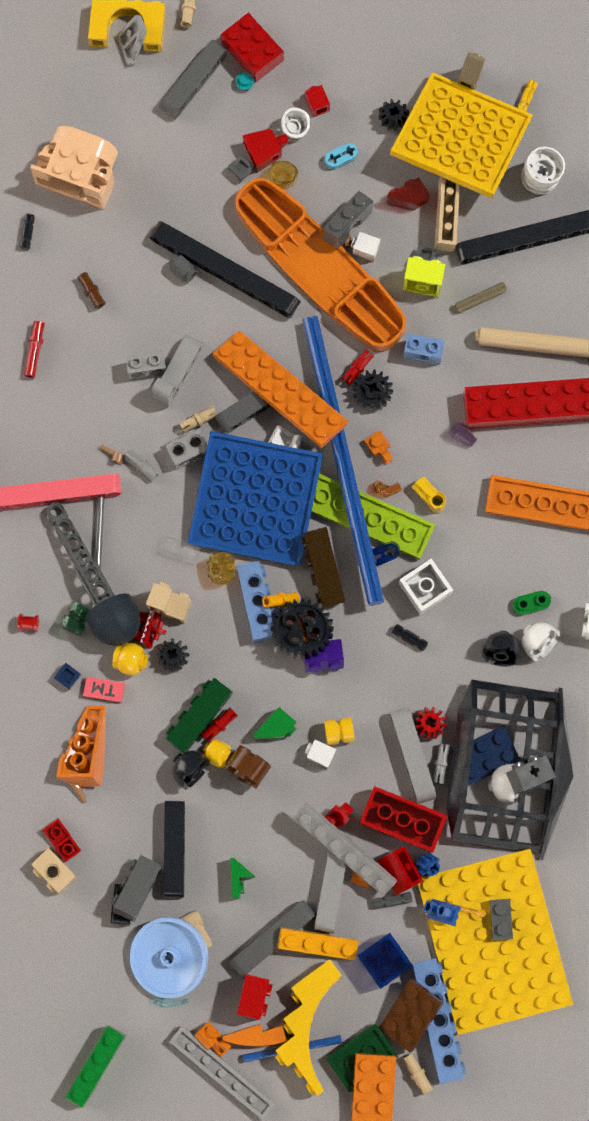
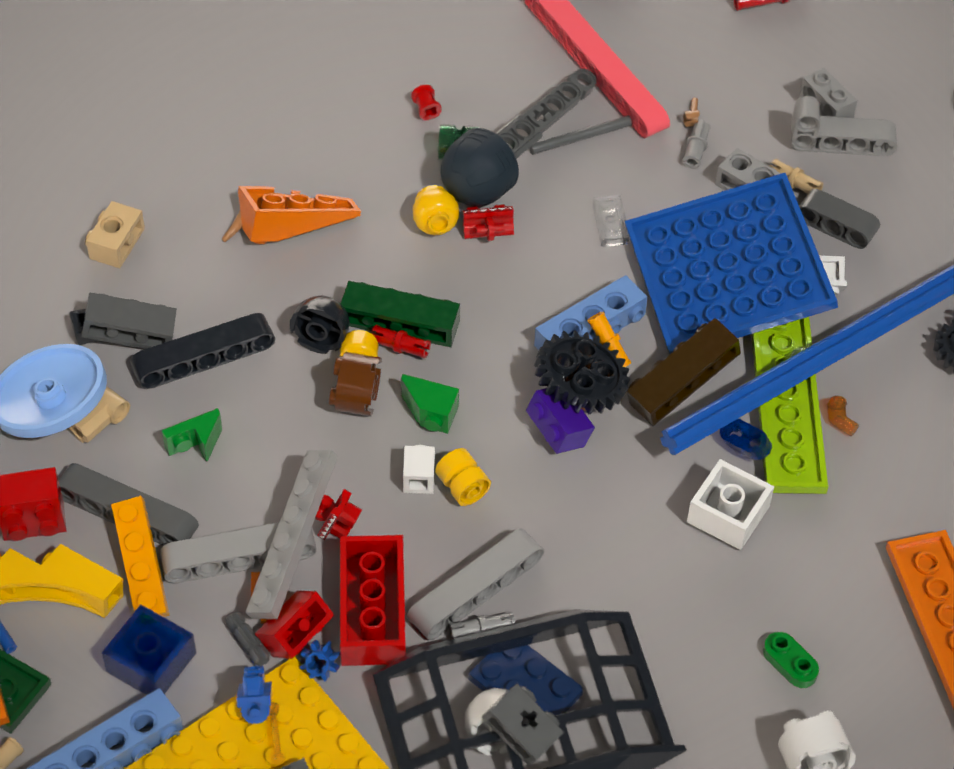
camera: 65 degrees right, 25 degrees down
(61, 840) = (162, 232): red slope -> none
(67, 676) = (379, 163): dark blue plate -> none
(91, 290) = (883, 21): reddish brown pin -> none
(104, 689) = (382, 207): coral tile -> none
(166, 658) = (466, 257): black gear -> none
(168, 603) = (533, 222): tan brick -> none
(221, 568) = (613, 262): clear yellow gear -> none
(280, 389) = (893, 239): orange plate -> none
(378, 445) = (894, 384): orange plate -> none
(409, 637) = (647, 520): black axle -> none
(411, 1015) = (79, 716): reddish brown plate -> none
(427, 728) = (535, 587): red gear -> none
(429, 493) = (865, 468): yellow piece -> none
(502, 648) = (697, 635): black cylinder -> none
(539, 639) = (739, 683): white cylinder -> none

